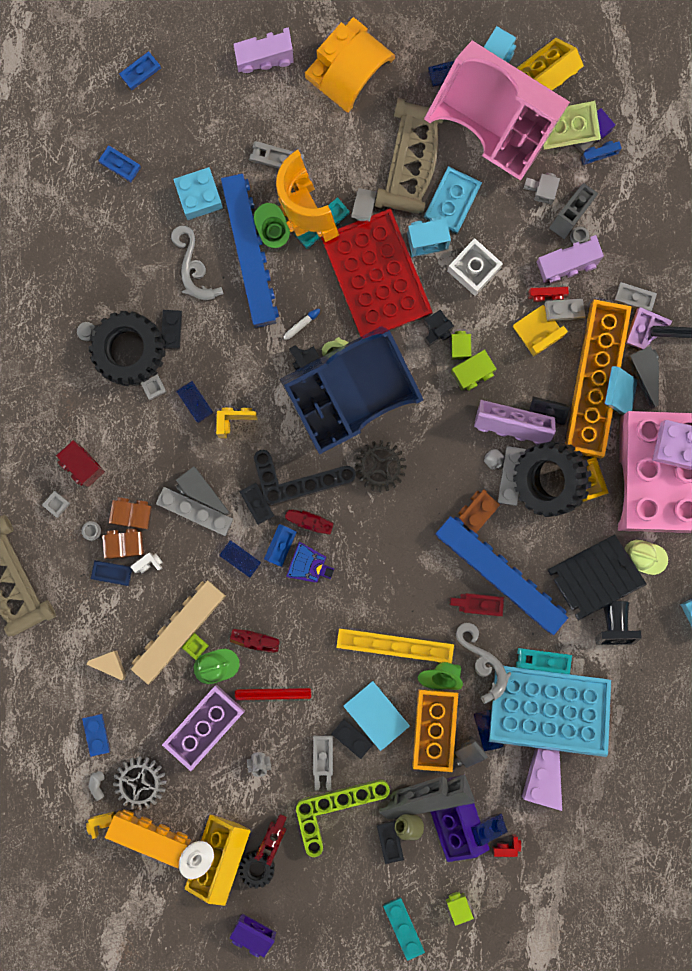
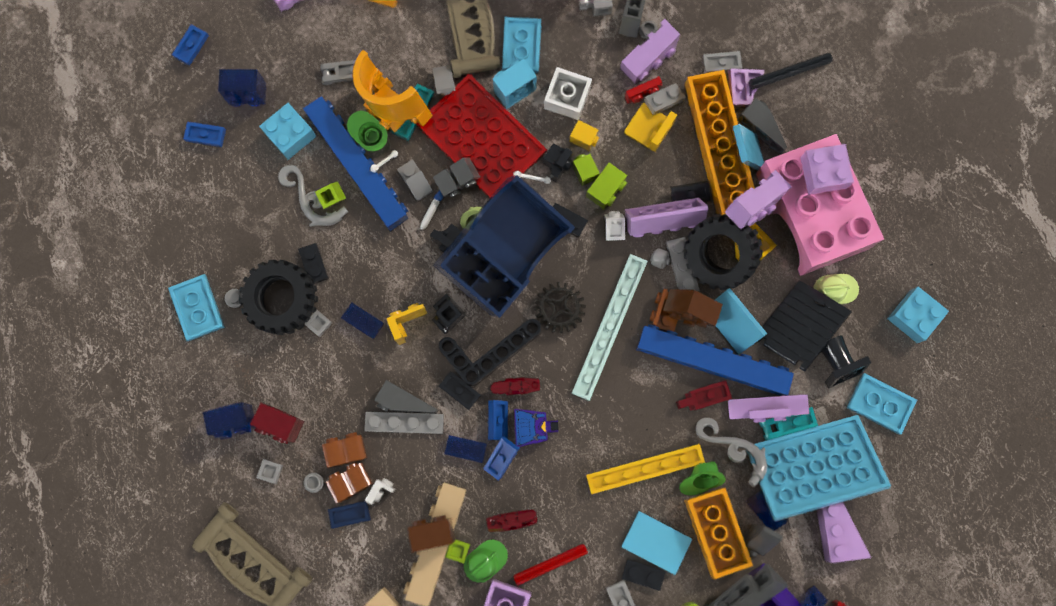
camera: 20 degrees left, 5 degrees down
(39, 443) = (228, 420): none -> clear blue brick
(48, 325) = (196, 307): none -> medium azure tile
(172, 134) = (242, 87): none -> clear blue brick
(177, 622) = (431, 534): none -> reddish brown brick
(213, 272) = (330, 195): none -> lime brick
(263, 264) = (374, 168): none -> white hinge
(268, 581) = (501, 458): none -> blue plate
(275, 428) = (447, 313): none -> black brick
(297, 289) = (415, 180): none -> light grey slope
(338, 304) = (460, 175): none -> dark grey piece
(394, 325) = (546, 180): none -> white hinge
(419, 503) = (609, 327): none -> light aqua tile
(426, 387) = (576, 220): none -> black plate
(464, 411) = (614, 226): none -> white bracket
(473, 314) = (584, 136): none -> yellow brick
(501, 519) = (692, 308): none -> reddish brown brick
(533, 639) = (768, 407): none -> lavender bracket
(535, 547) = (737, 322): none -> medium azure tile
(602, 447) = (758, 202): none -> lavender wedge
(638, 679) = (881, 403): none -> medium azure tile

